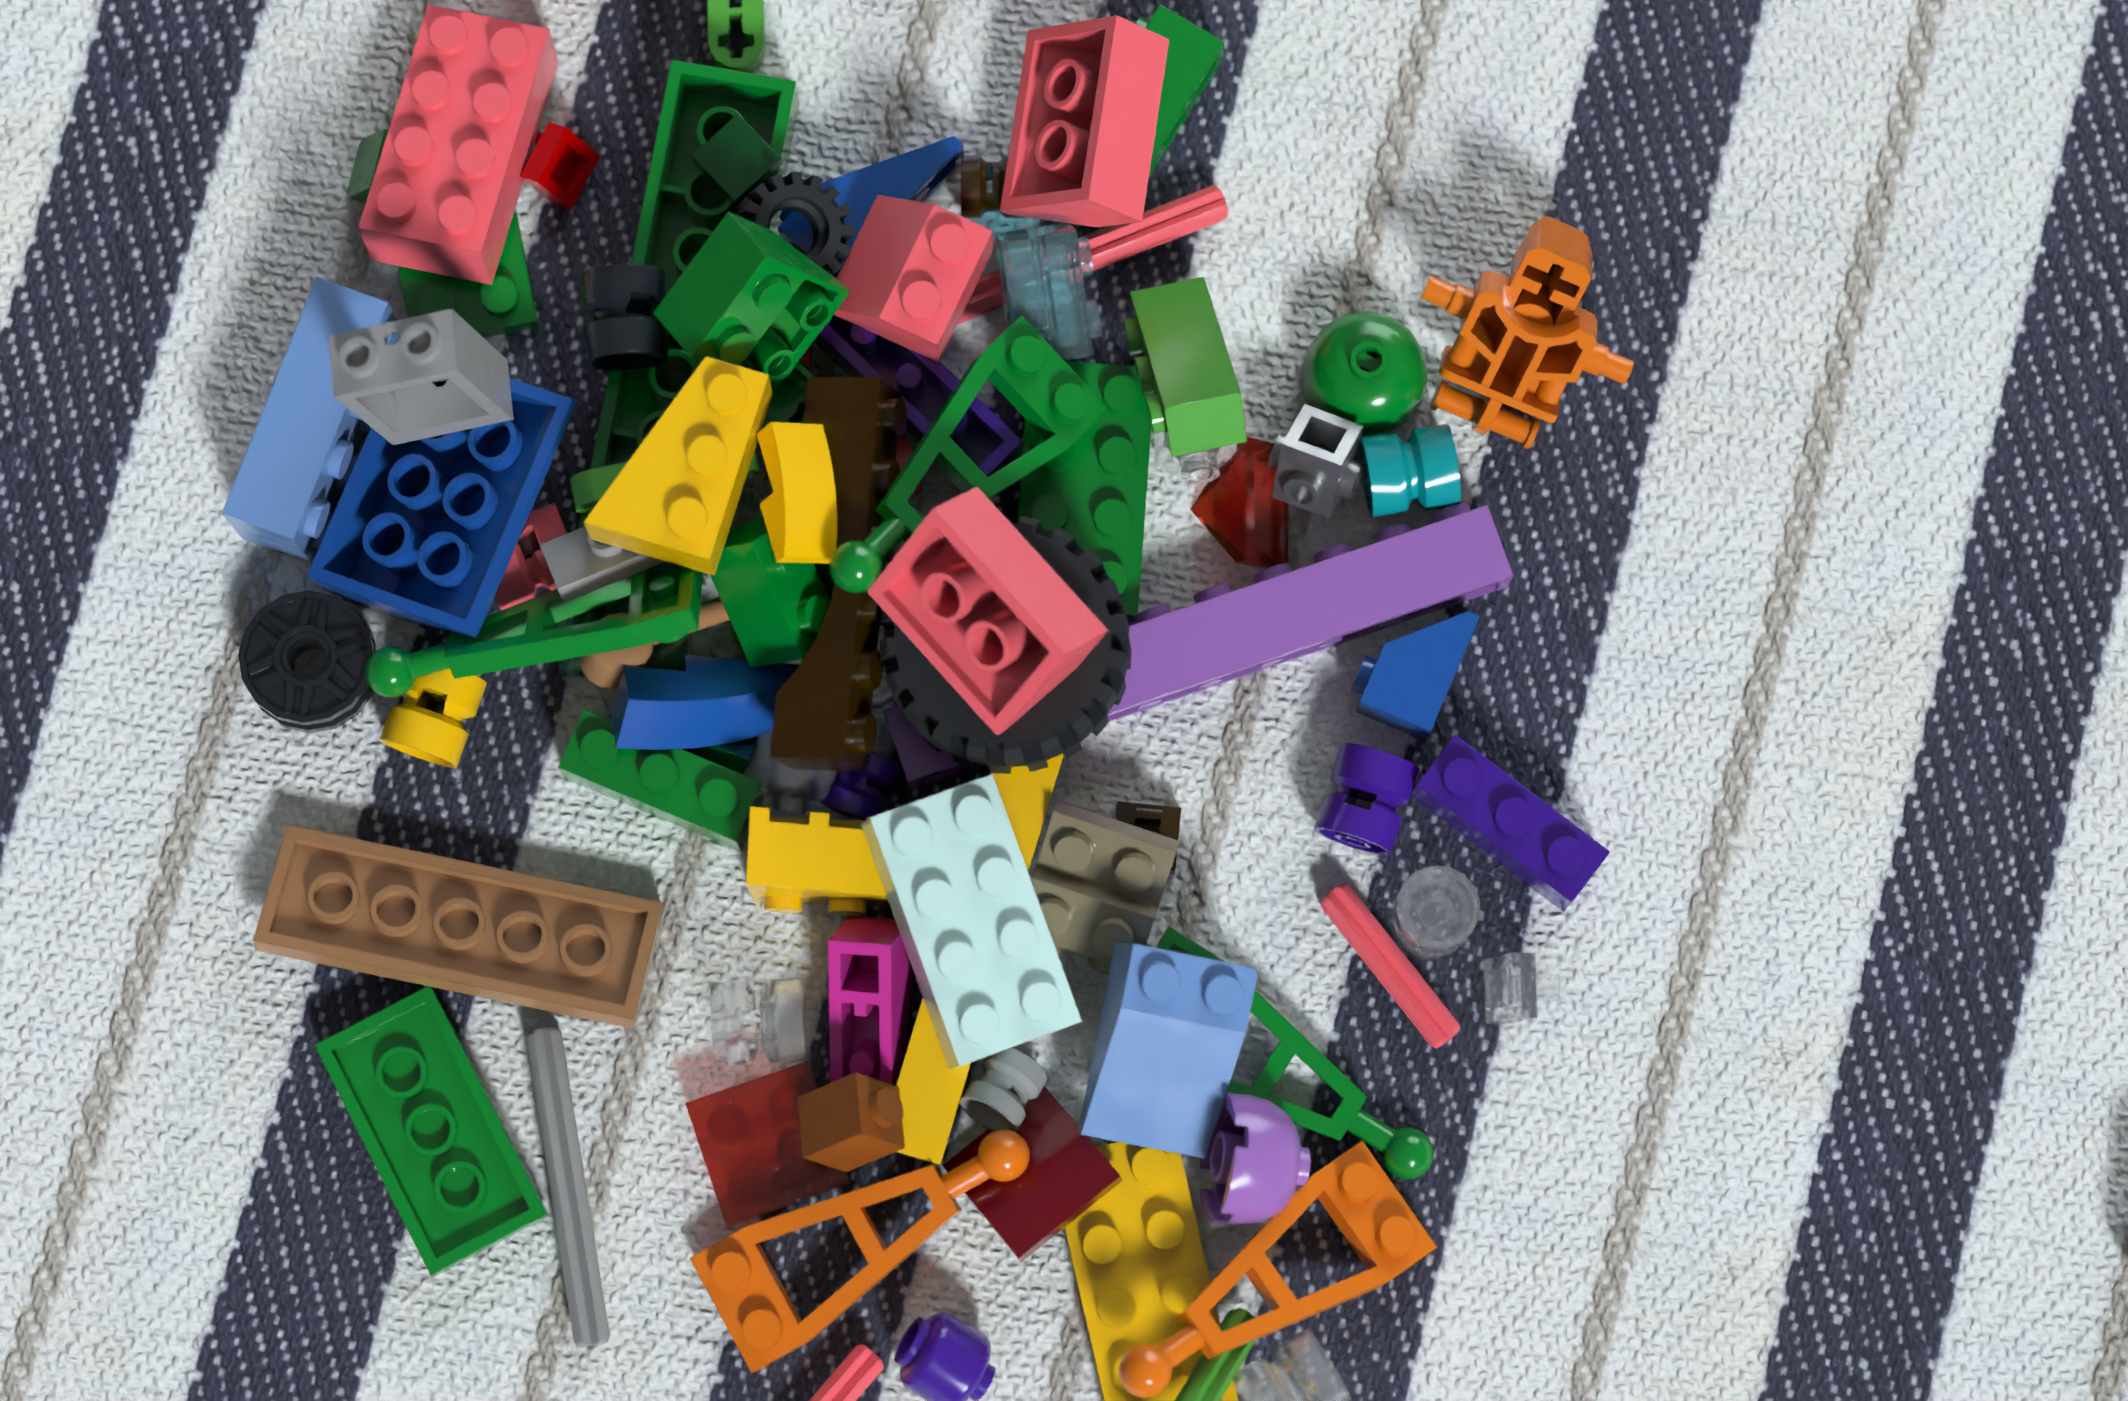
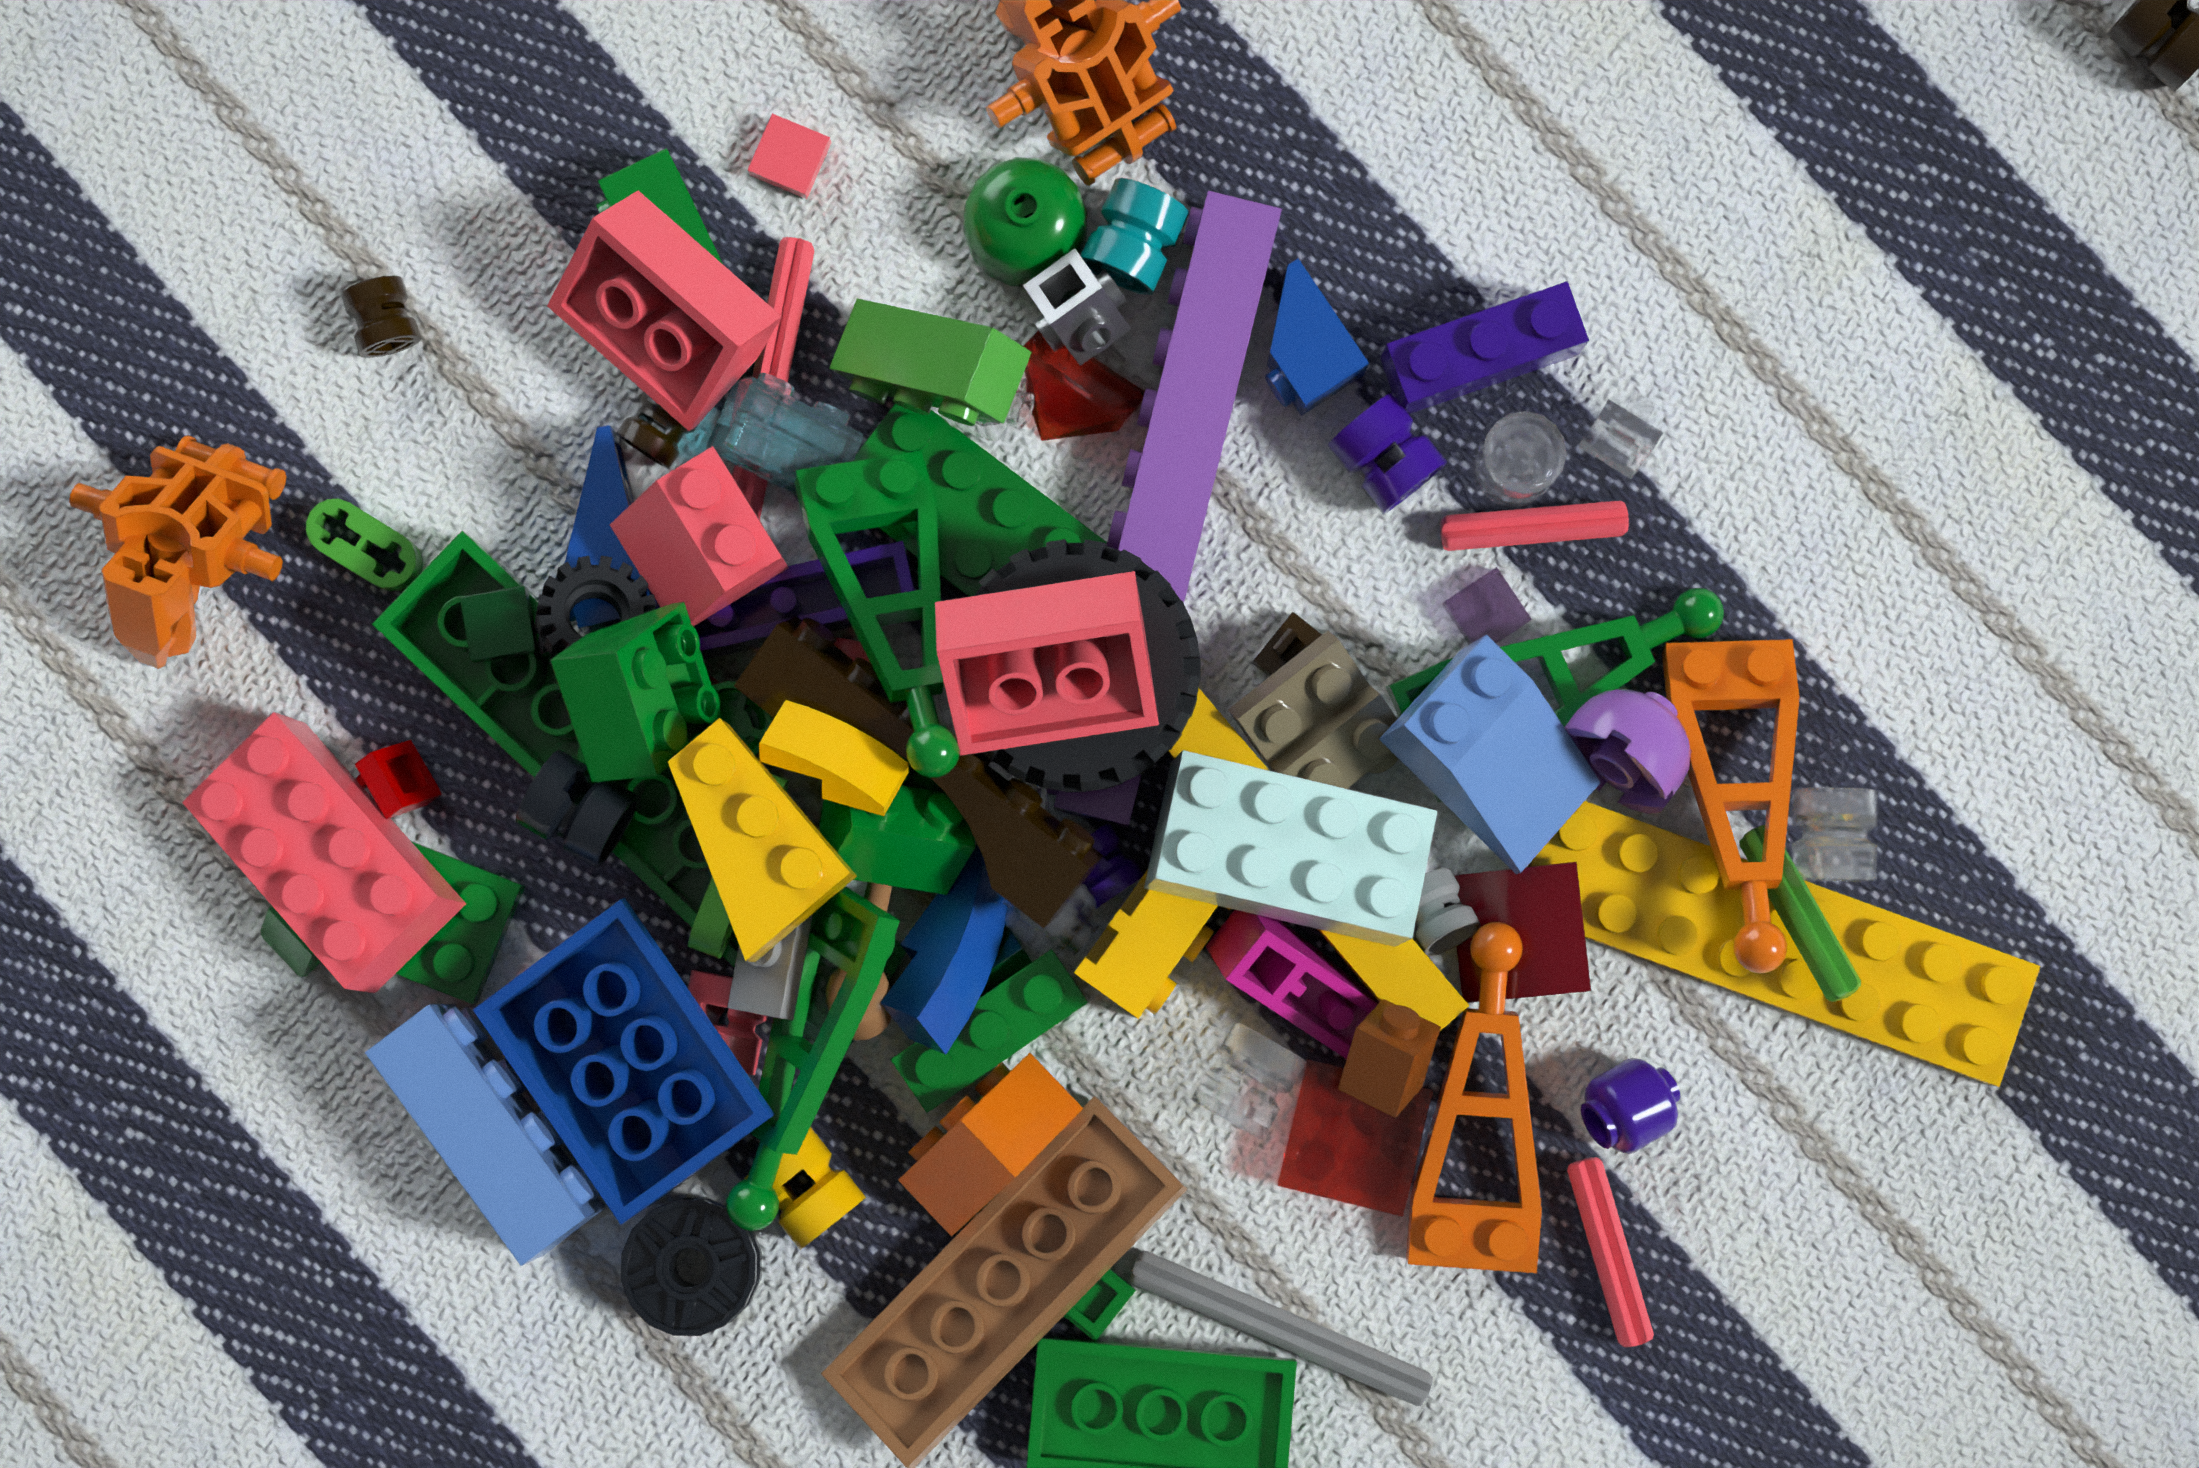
camera: 55 degrees left, 5 degrees up
(400, 383) = (527, 1016): light grey window -> none
(492, 1021) = (1100, 1304): none -> green tile
(568, 835) = (987, 1141): none -> orange brick
(1290, 148) = (789, 156): none -> coral tile
(1291, 972) = (1487, 608): none -> clear purple tile

